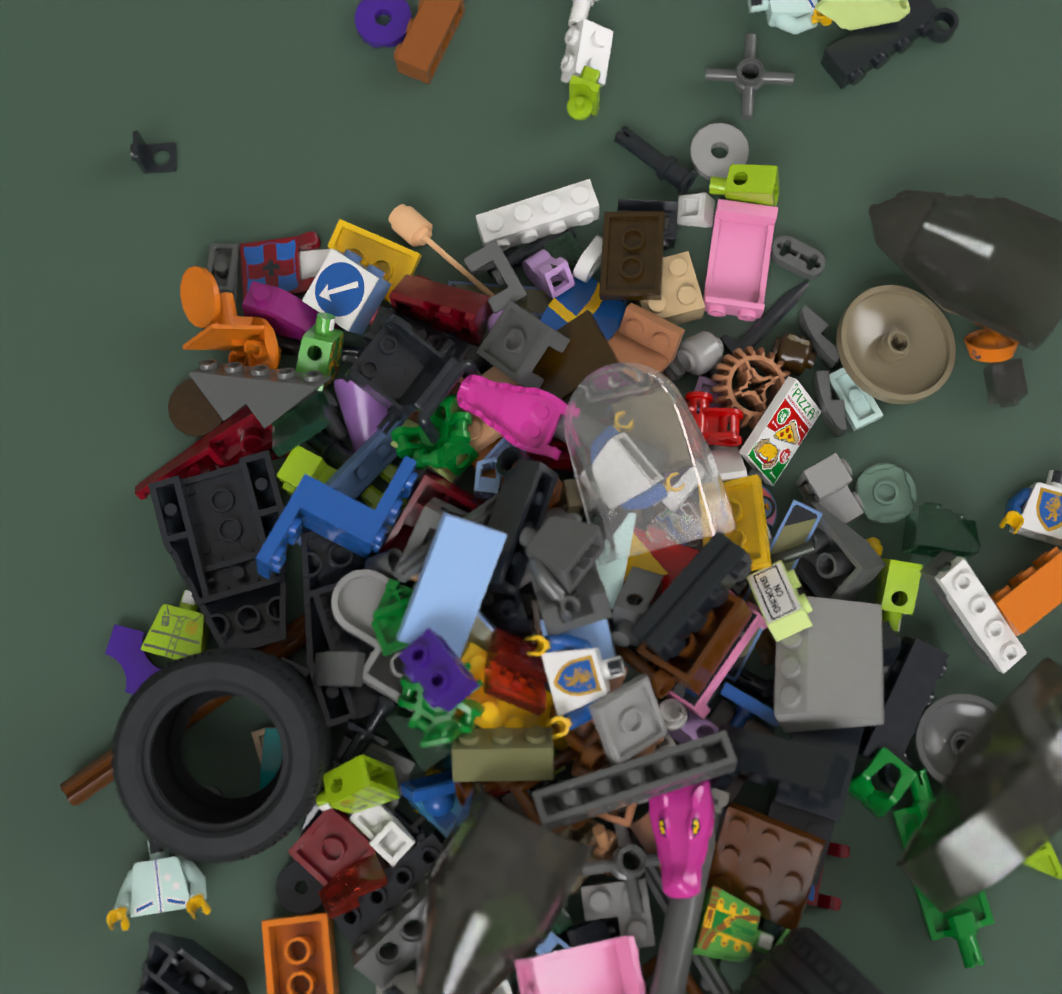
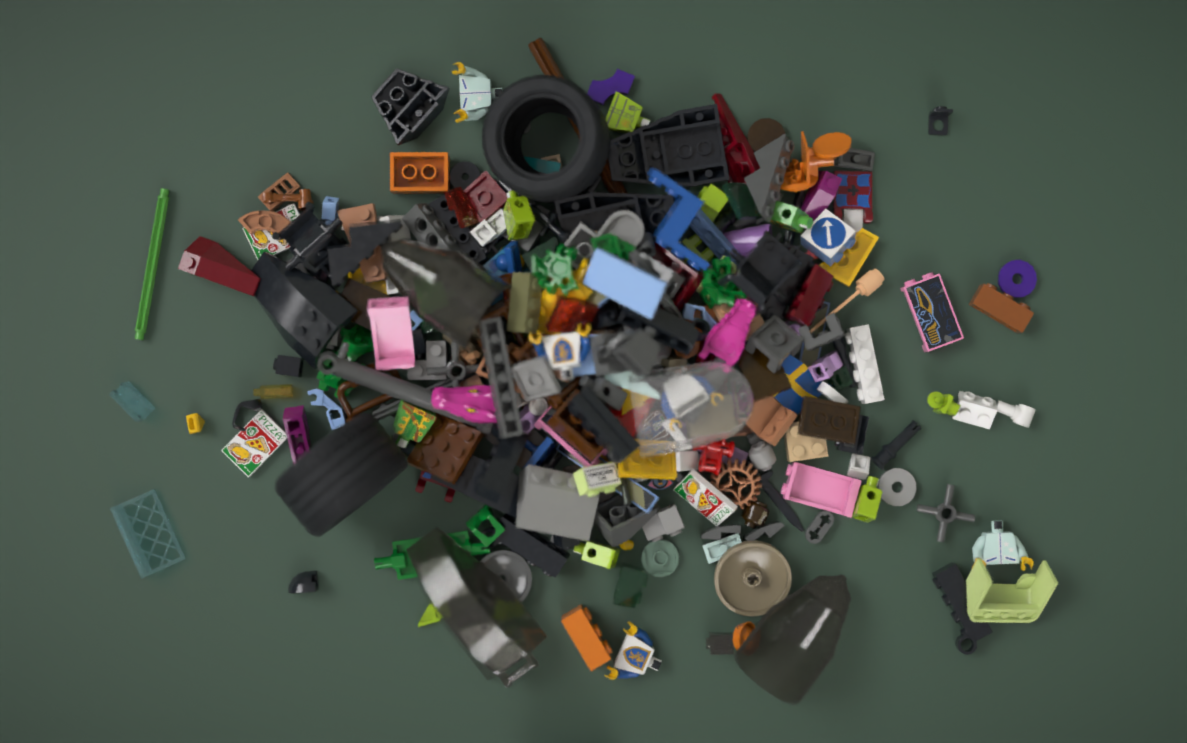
camera: 90 degrees right, 10 degrees up
(339, 669) = (586, 211): dark grey slope -> none
(438, 671) = (574, 270): dark purple brick -> none
(446, 128) = (932, 311): none -> panel
(973, 611) = (578, 595): white piece -> none

